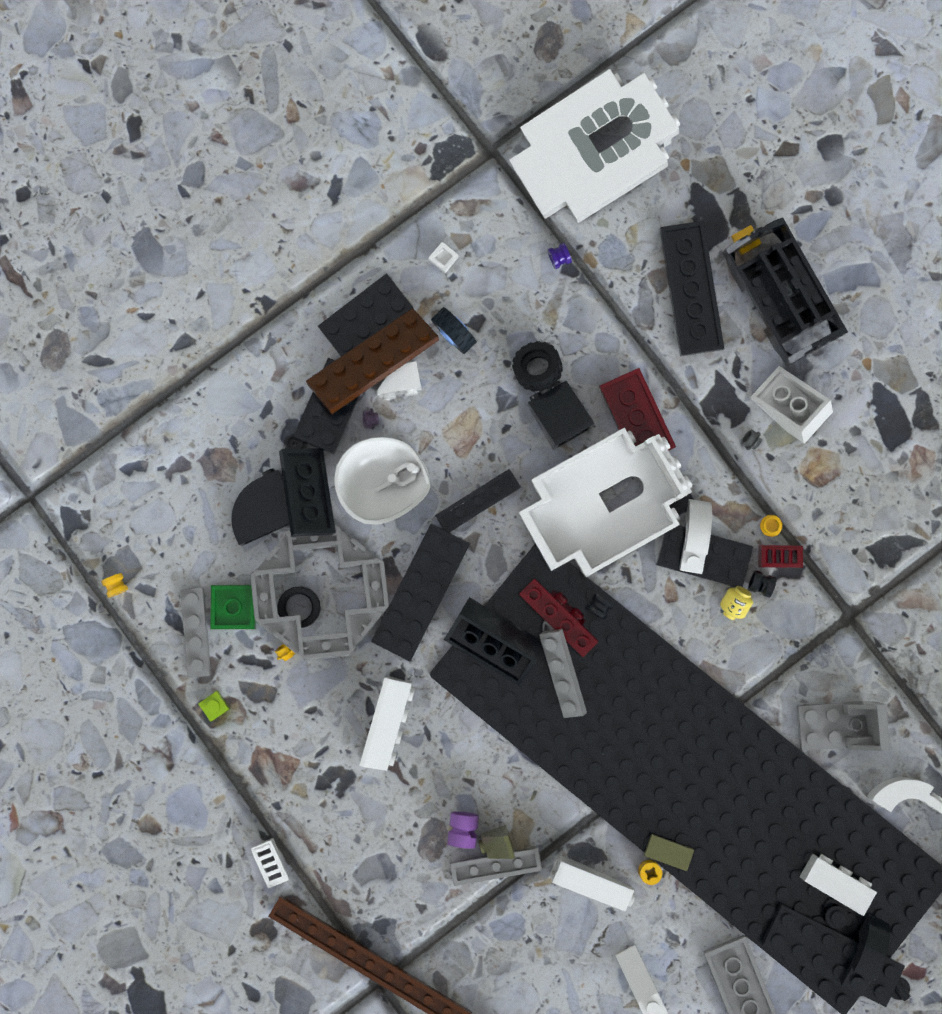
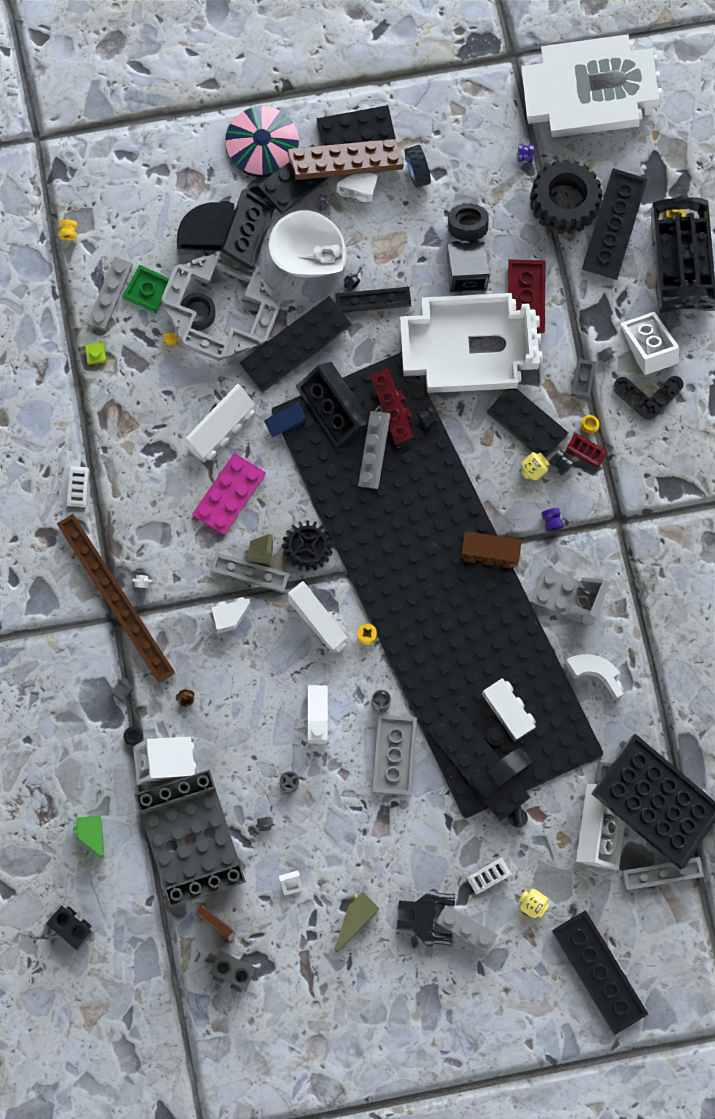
camera: 20 degrees right, 10 degrees down
(270, 380) = (260, 141): none -> dish
(388, 933) = (141, 581): none -> white plate
(431, 790) = (229, 494): none -> dark pink plate
(443, 257) = (437, 114): white plate -> none
(444, 492) = (351, 281): none -> black plate
(451, 683) = (285, 420): none -> dark blue slope
(463, 829) = (239, 530): medium lavender wheel -> none
(497, 925) = (229, 615): none -> white slope
(533, 825) = (321, 536): none -> black gear
(630, 257) = (576, 177): none -> black tyre
(669, 852) = (389, 625): olive tile -> none
(697, 536) = (526, 401): white arch -> none
(702, 940) = (381, 700): none -> flat silver wheel
(736, 719) = (491, 549): none -> reddish brown brick
(740, 479) = (583, 378): none -> dark grey plate
(783, 651) = (552, 519): none -> dark purple wheel
(824, 467) = (652, 402): none -> black beam

